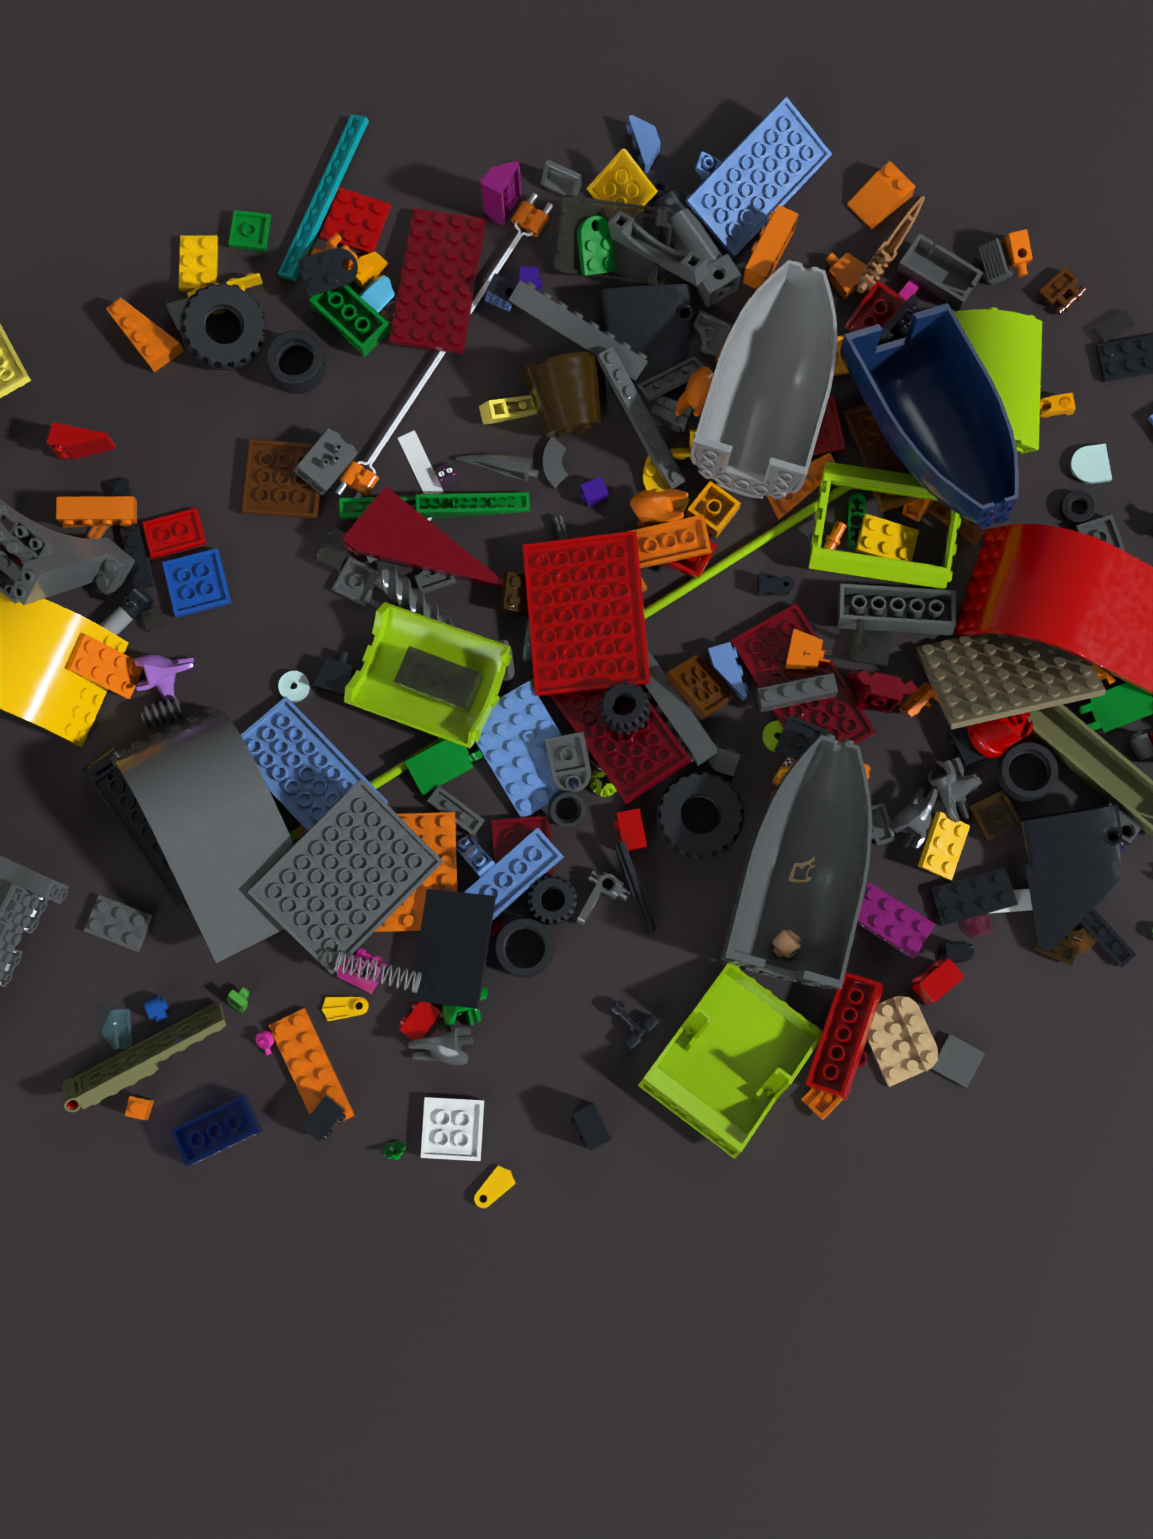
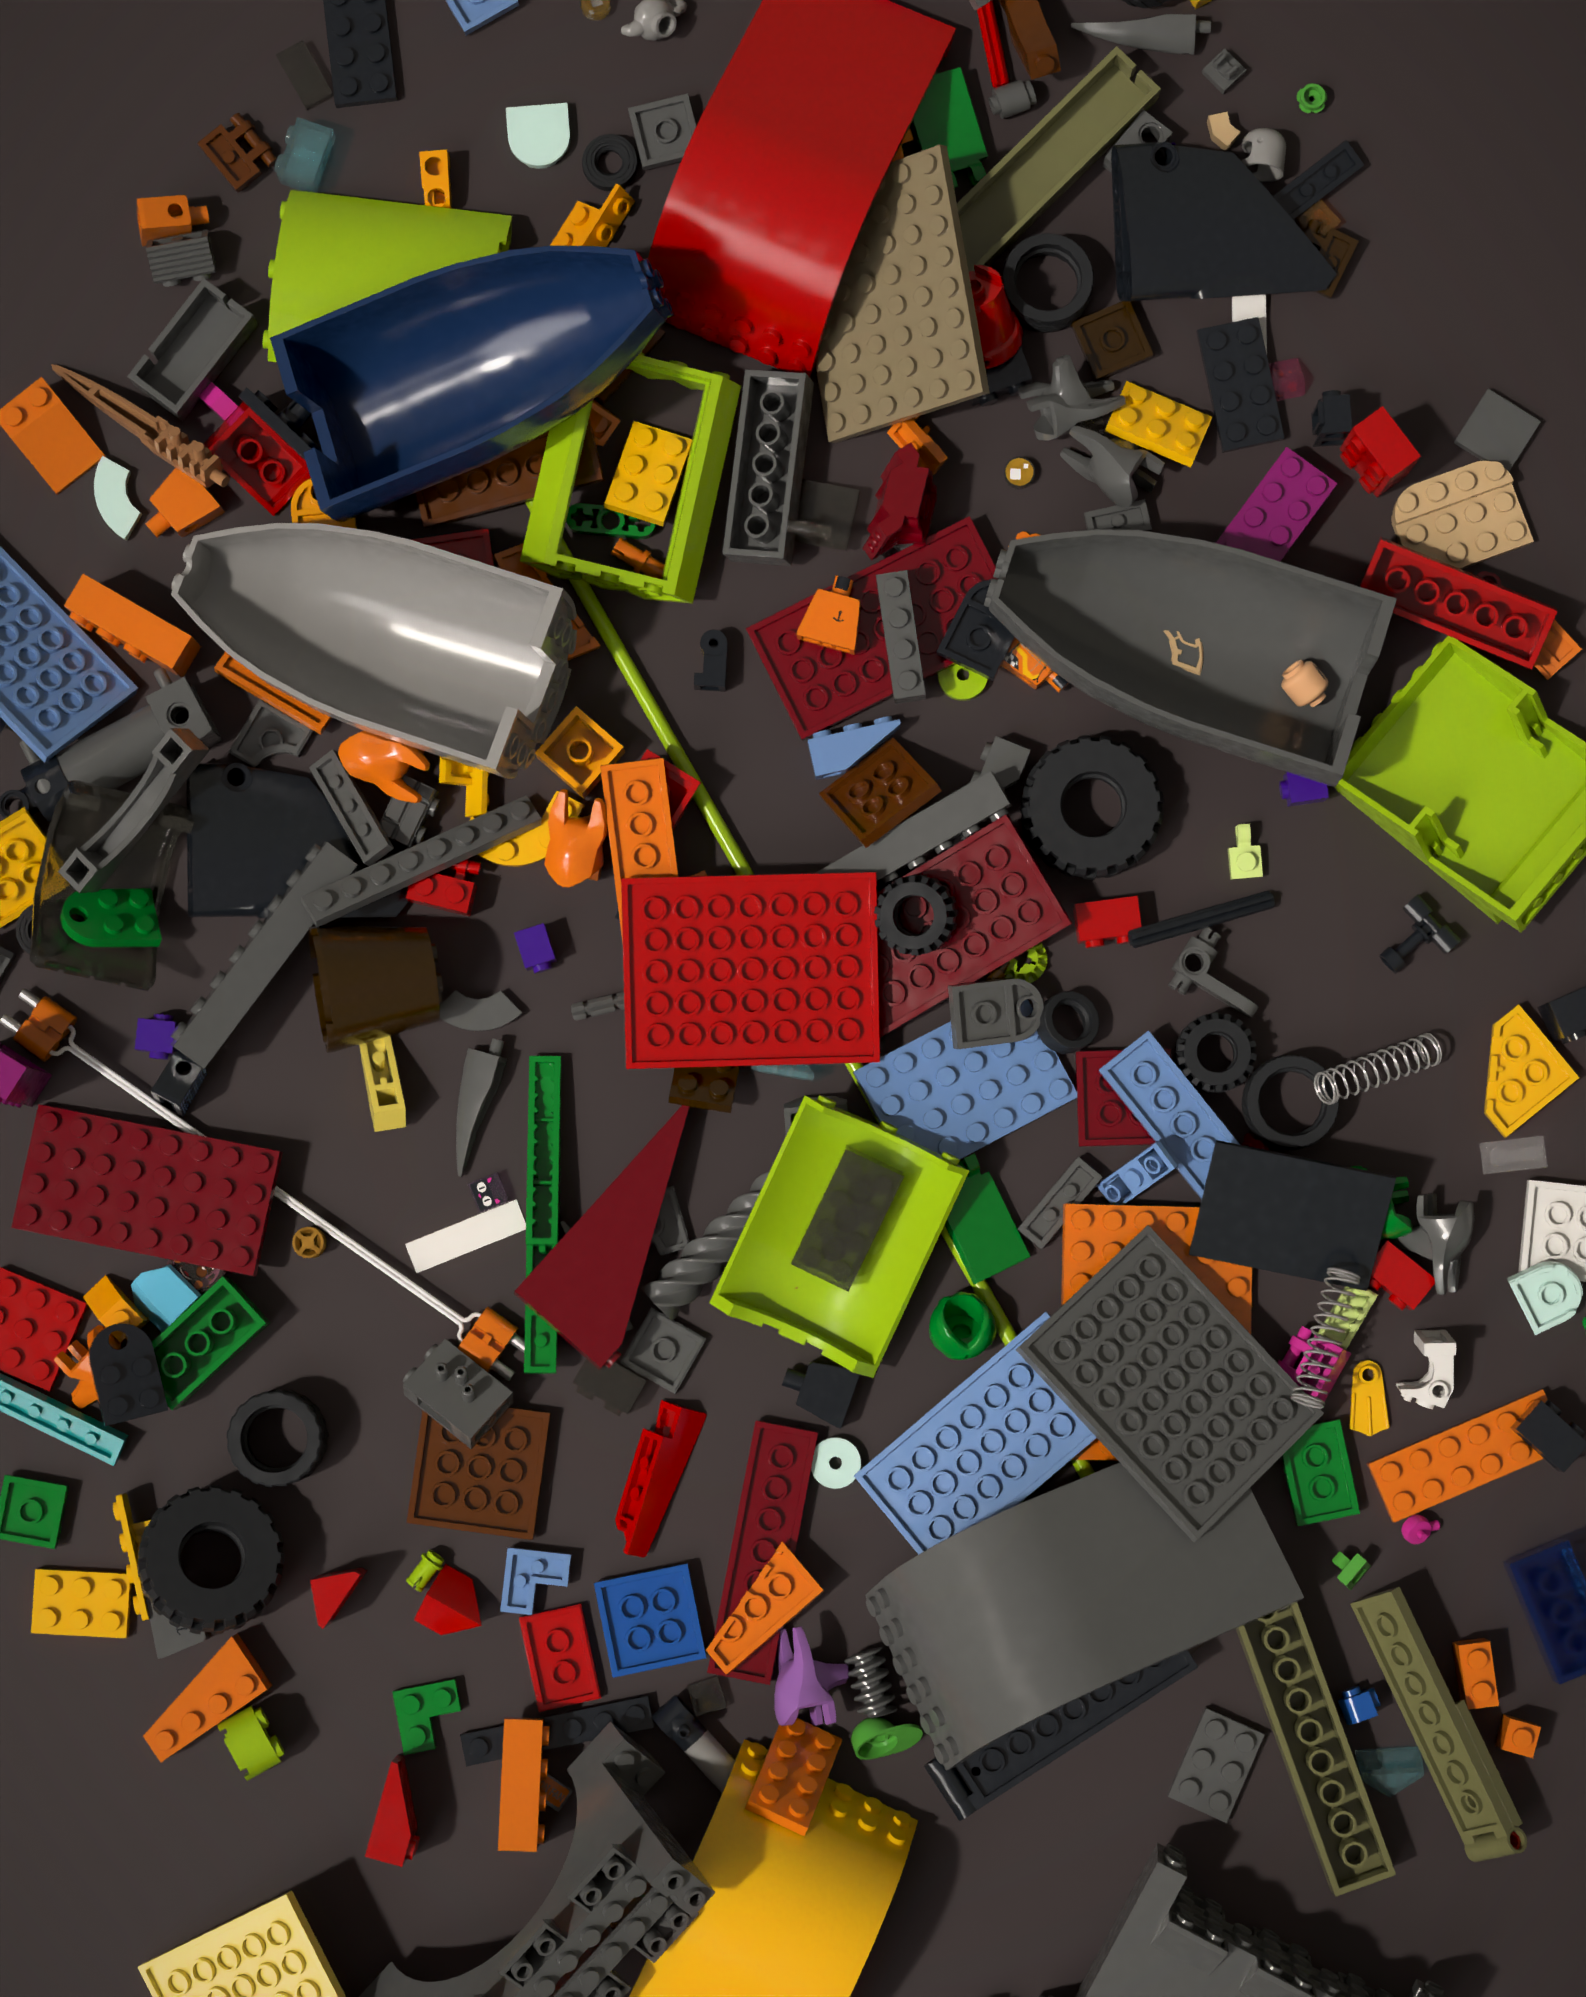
camera: 85 degrees left, 5 degrees up
(119, 358) = (250, 1742): none -> lime brick
(128, 981) = (1315, 1750): none -> olive brick
(129, 719) = (880, 1738): none -> bright green cap
(140, 452) = (417, 1706): none -> green plate
(176, 1079) = (1475, 1673): none -> orange brick
(204, 467) = (450, 1603): none -> red slope
(204, 647) = (771, 1602): none -> orange wing
(206, 398) = (332, 1591): none -> red slope
(223, 509) = (527, 1568): none -> medium blue plate
(226, 454) = (425, 1570): none -> lime pin
(239, 645) = (766, 1516): none -> dark red plate
(283, 581) = (655, 1474): none -> red wedge
(296, 978) = (1320, 1475): none -> green plate
(350, 1045) = (1440, 1351): none -> white tile
(377, 754) = (962, 1326): none -> green piece
(396, 994) = (1361, 1305): none -> yellowish green plate
(412, 370) = (304, 1240): none -> pearl gold wheel
(413, 1114) = (1547, 1294): none -> light aqua tile
(498, 1089) = (1513, 1155): none -> clear plate
(551, 1093) = (1522, 1072): none -> yellow plate
(564, 1028) = (1331, 1078): none -> light grey piece
(624, 437) = (446, 892): none -> red brick
(675, 914) = (1244, 859): none -> yellowish green plate
(717, 946) = (1301, 790): none -> dark purple brick
(846, 236) = (113, 498): none -> light aqua tile
(906, 763) = (1019, 473): none -> tile
(1034, 498) = (593, 226): none -> light orange bracket
(1064, 329) = (305, 155): none -> clear light blue brick
(1125, 903) = (1268, 151): none -> light grey helmet
(1134, 877) = (1221, 130): none -> tan piece

